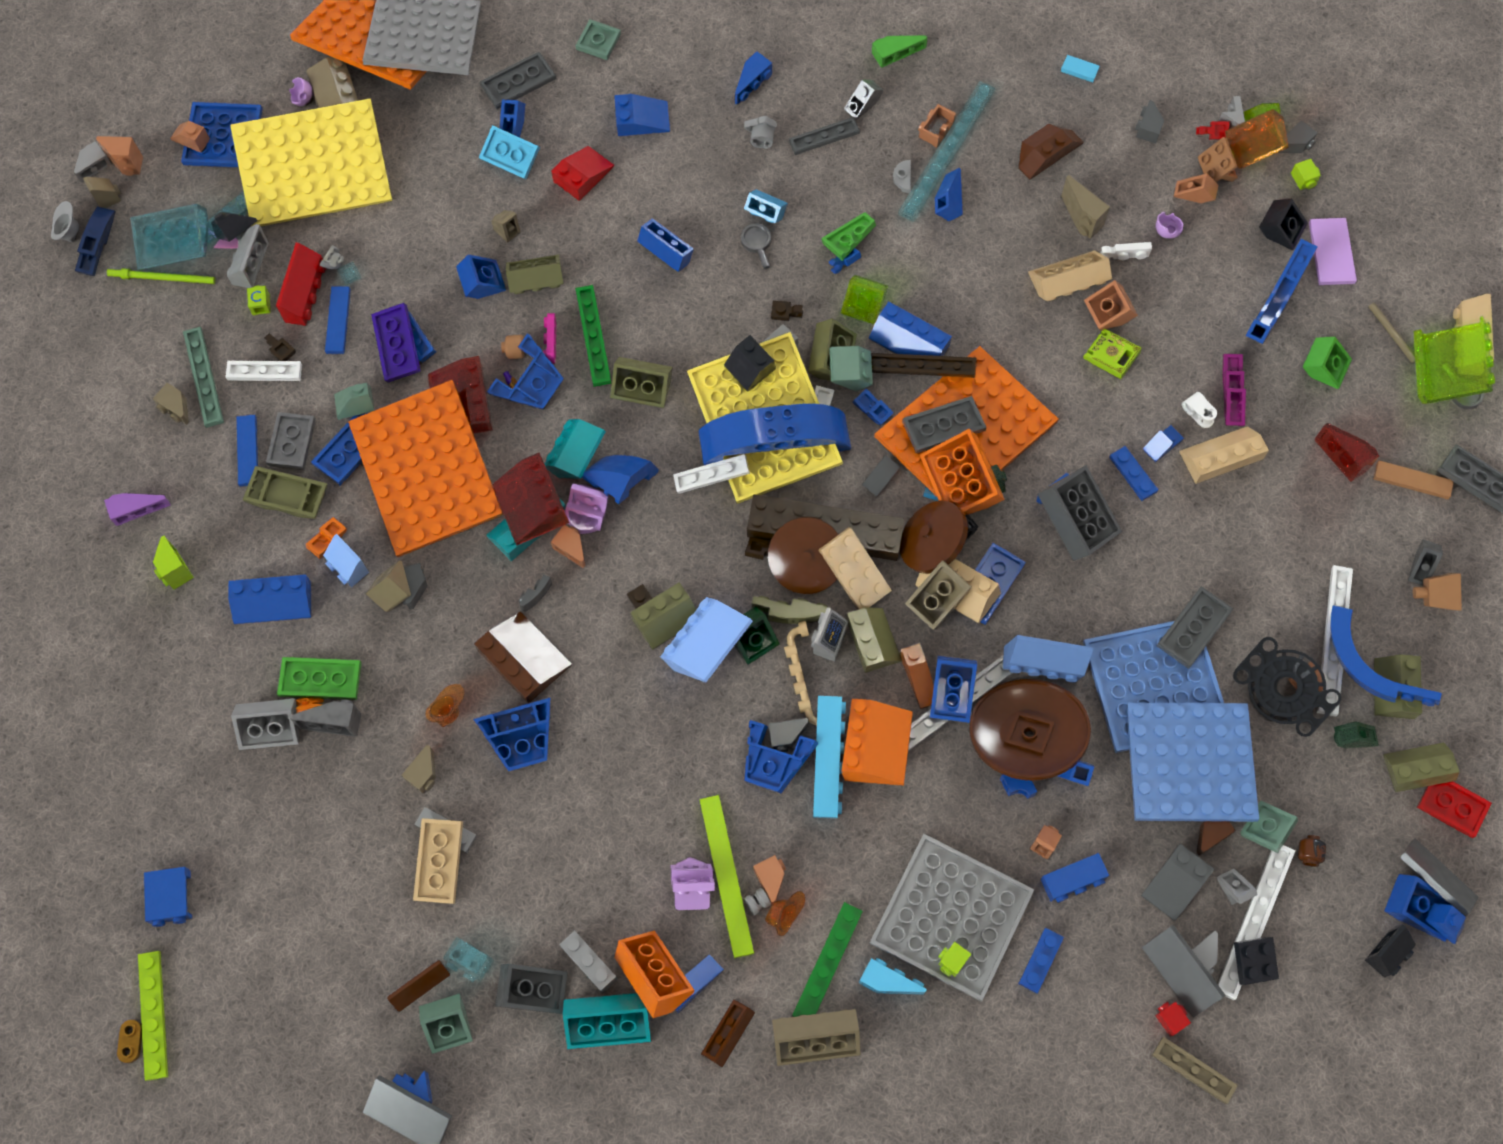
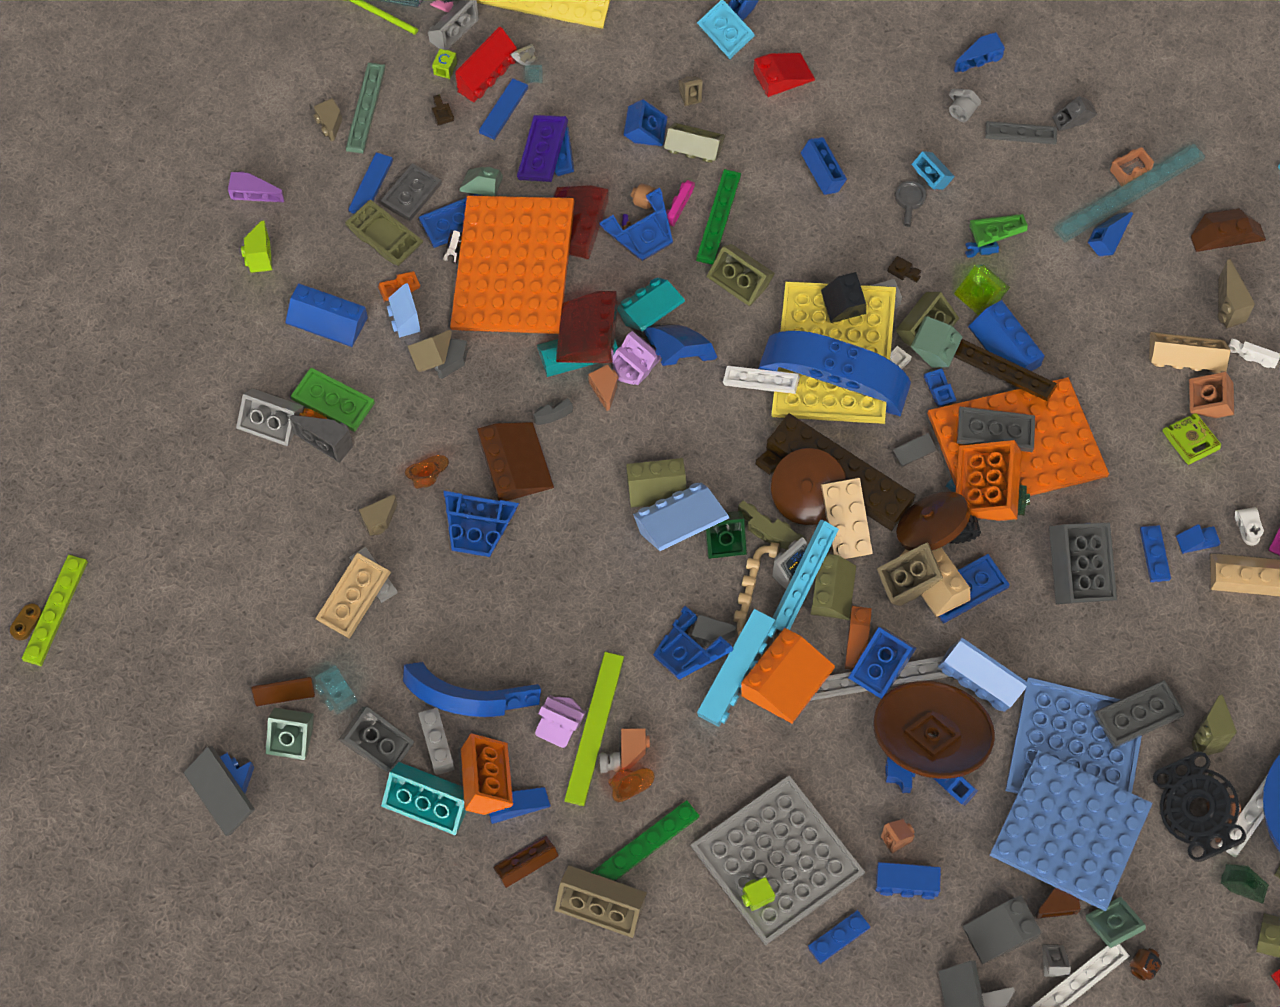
camera: 25 degrees right, 5 degrees down
(166, 896) = (115, 518): blue panel -> none
(264, 370) = (418, 124): white plate -> none
(357, 470) = (453, 241): none -> plate
(595, 913) = (465, 701): none -> blue arch
(639, 596) = (642, 455): dark brown plate -> none
(640, 115) = (861, 45): blue slope -> none
(845, 641) = (804, 575): none -> medium azure plate
(884, 980) = (688, 885): medium azure slope -> none
(897, 47) = (1128, 82): bright green slope -> none
(902, 176) = (1075, 197): light grey plate -> none
(1265, 610) = (1215, 729): none -> olive slope

